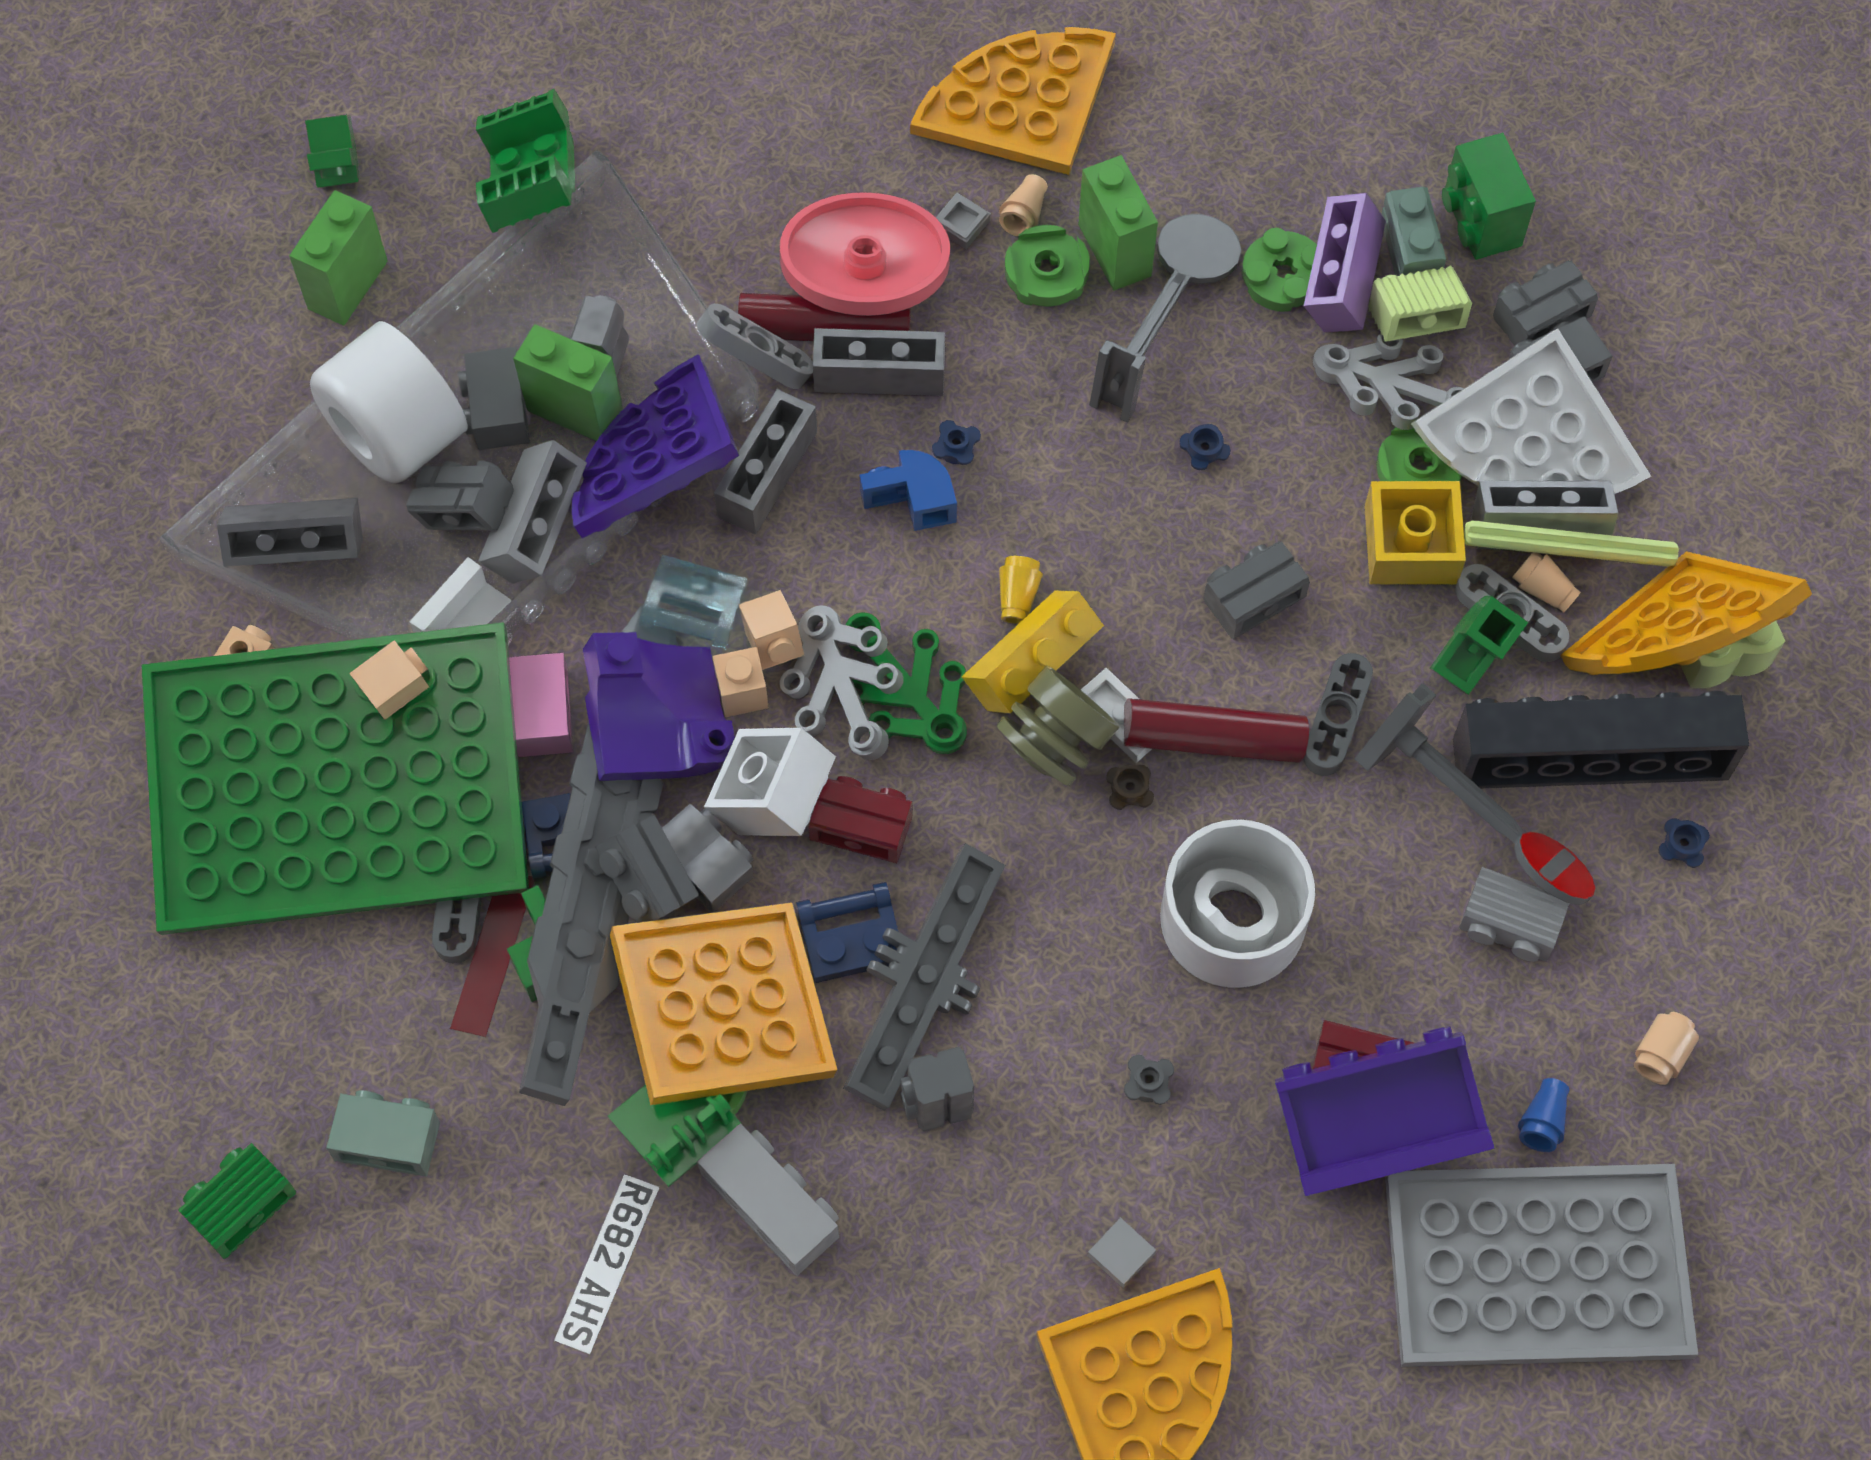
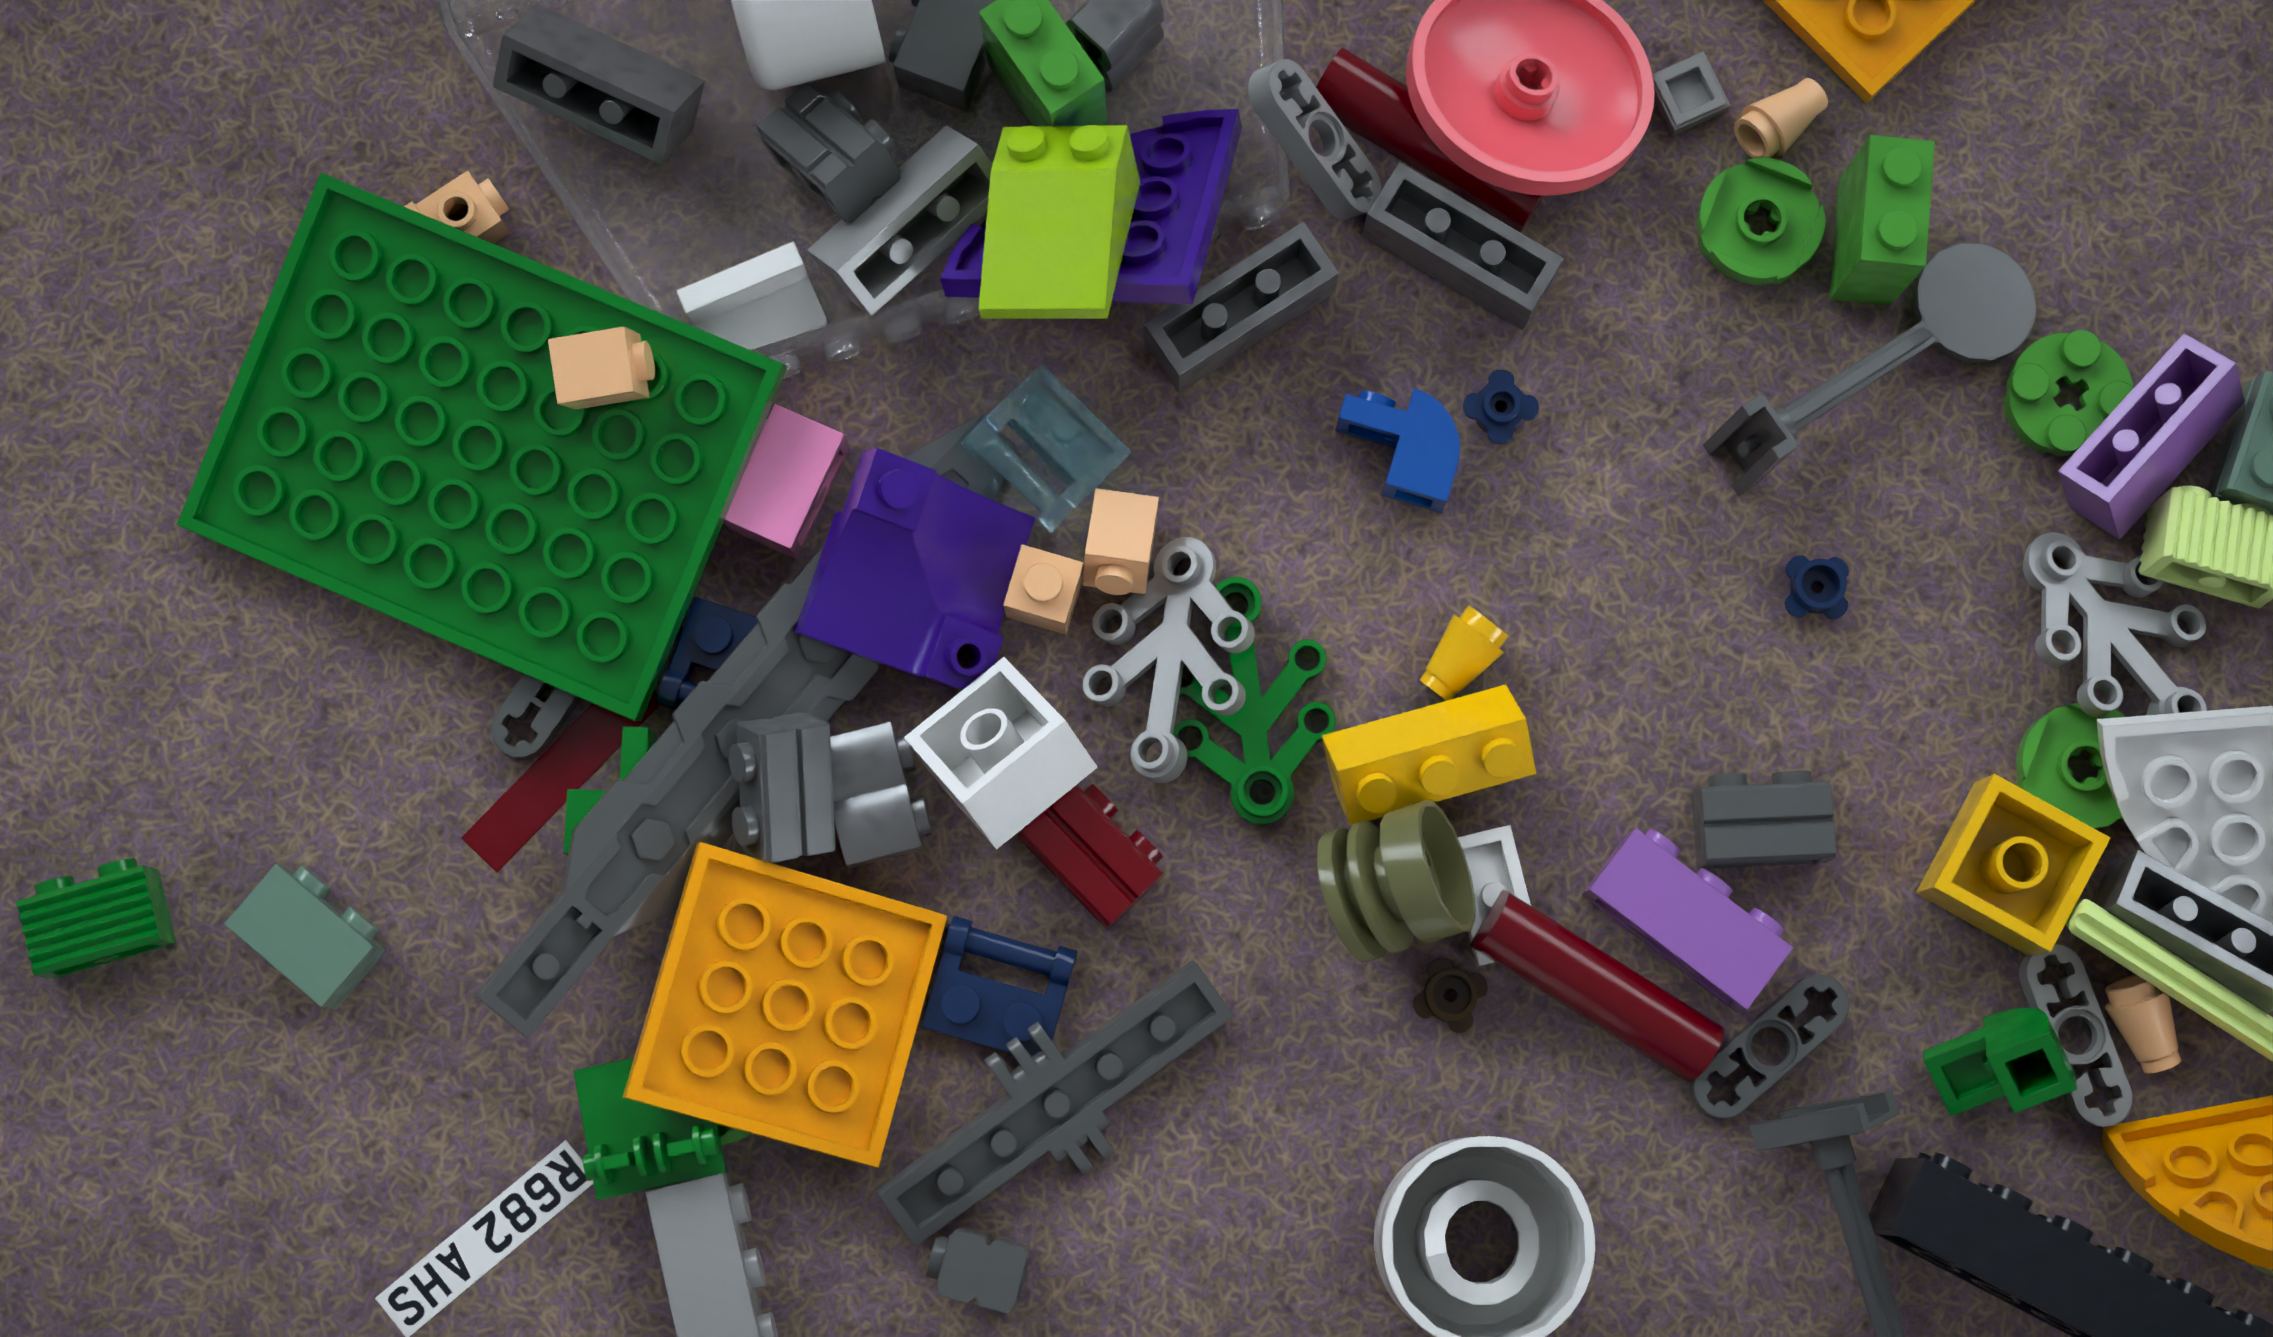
camera: 30 degrees right, 15 degrees up
(628, 452) = (1057, 221): none -> lime slope
(1245, 665) = (1689, 918): none -> medium lavender brick

